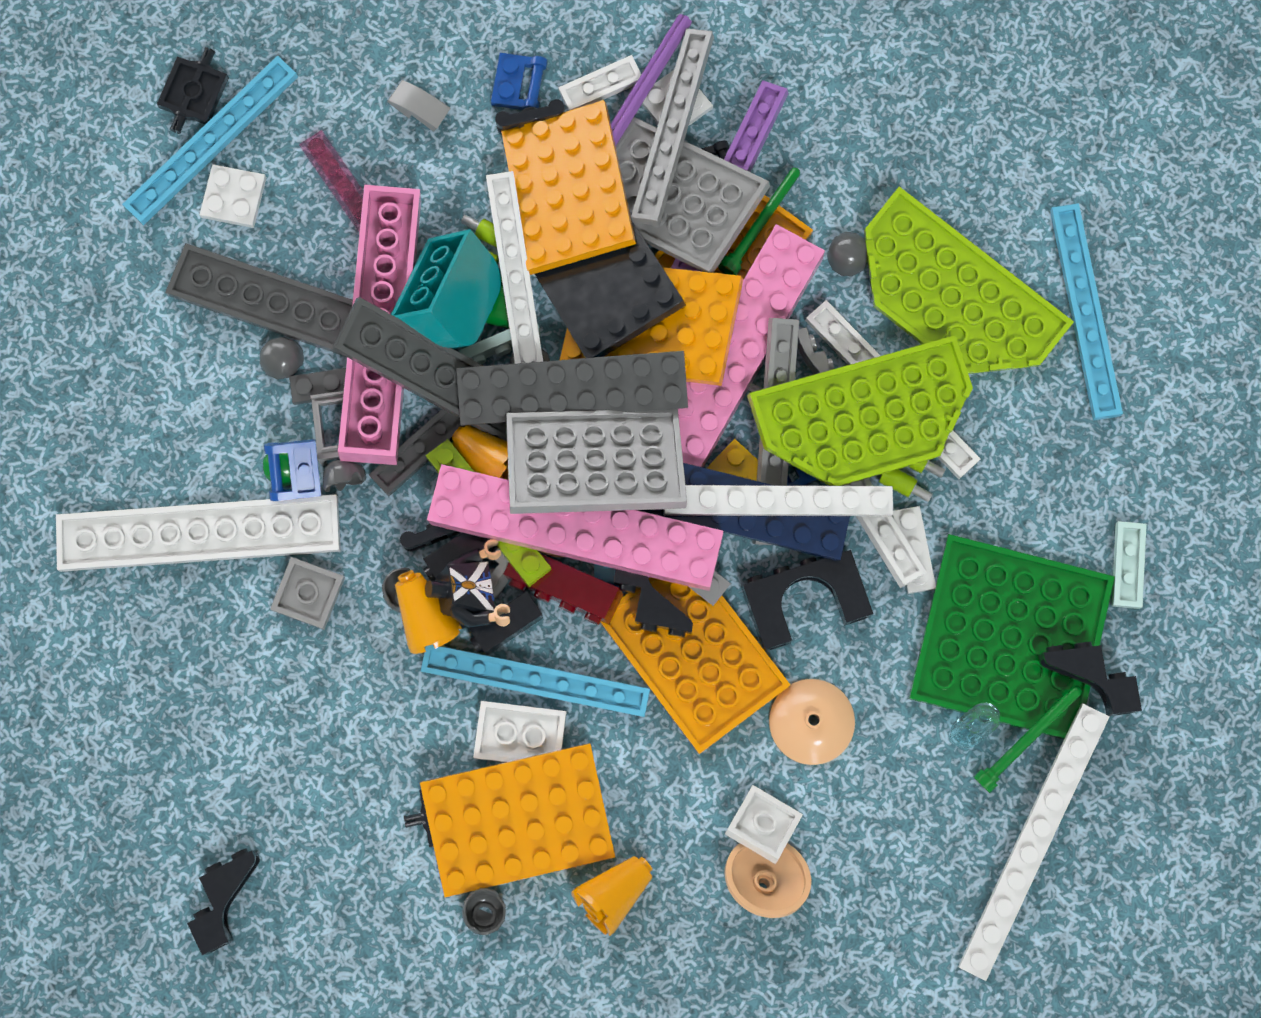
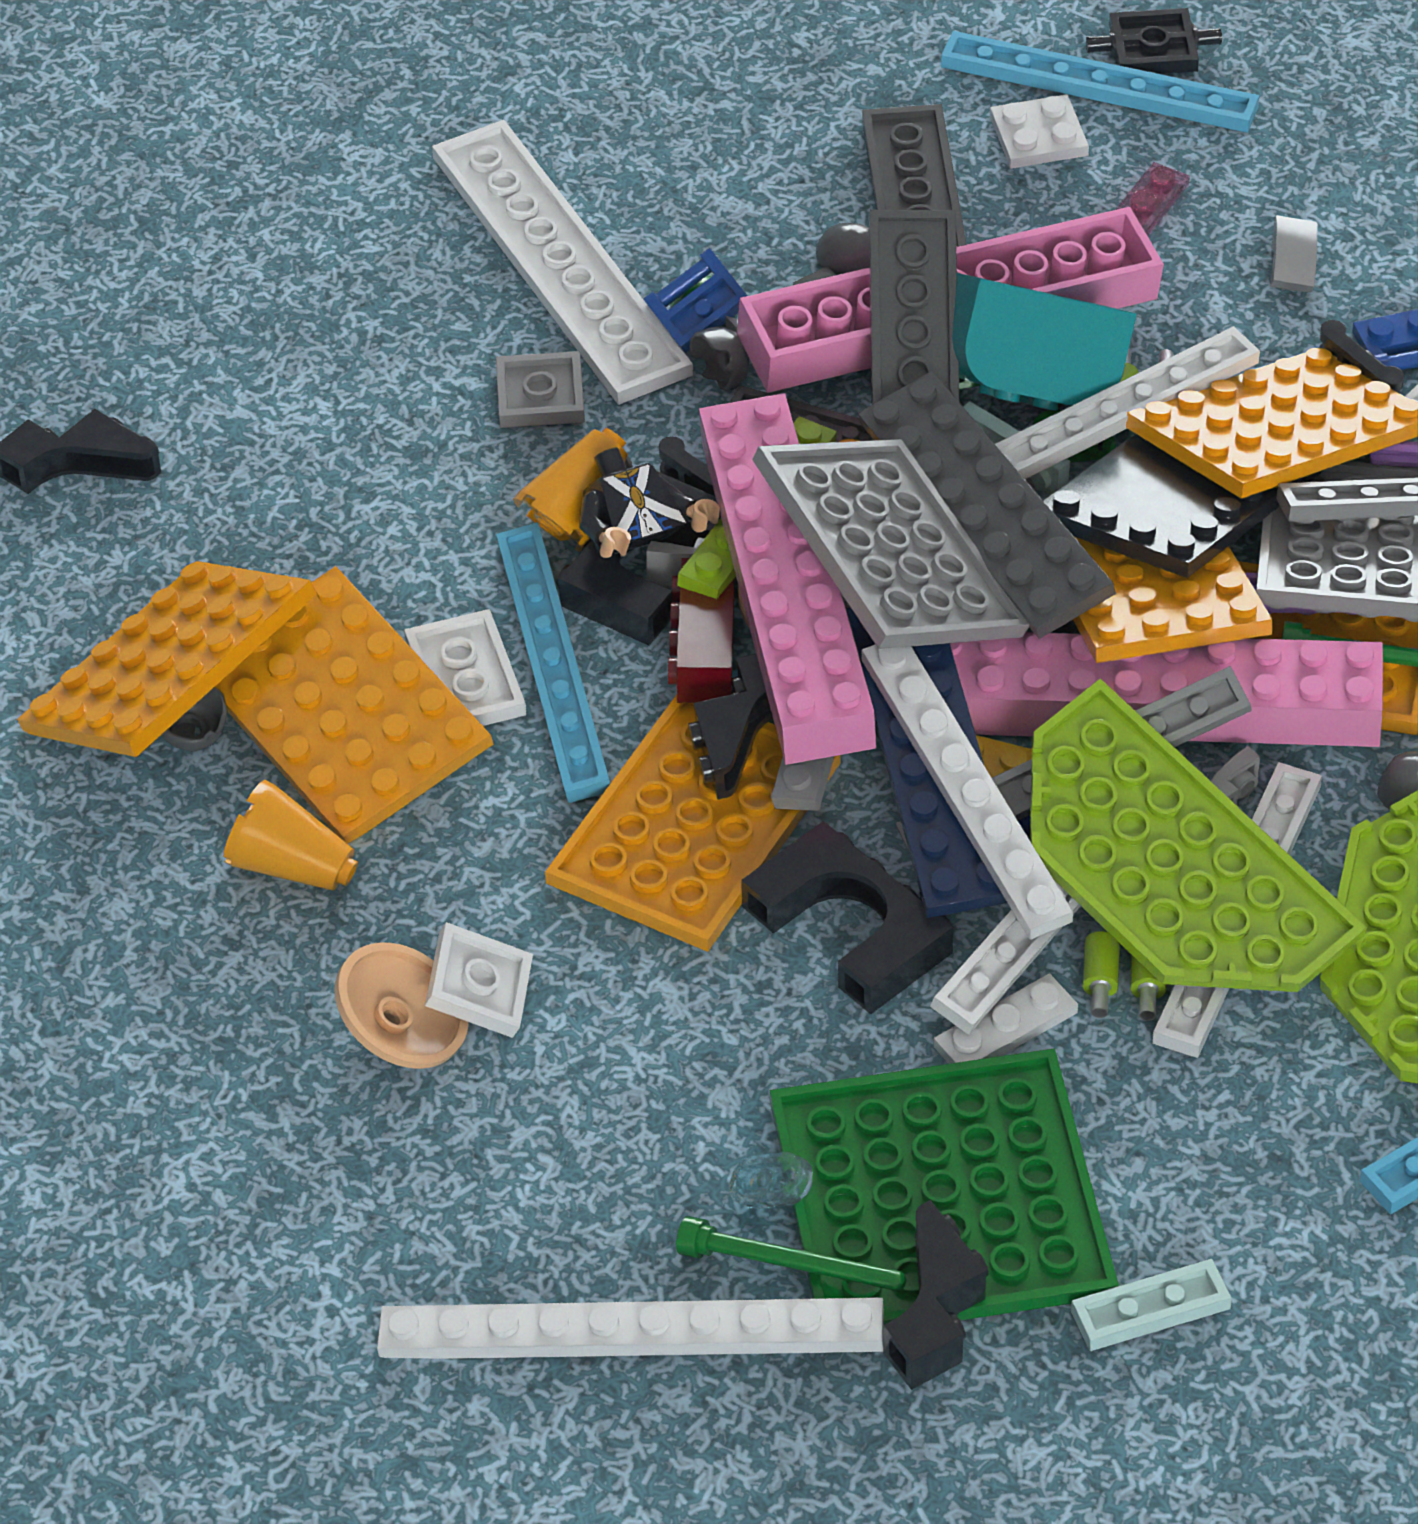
camera: 65 degrees right, 30 degrees down
(437, 911) = (166, 657): none -> light orange plate
(797, 736) = (671, 1015): light nougat dish -> none

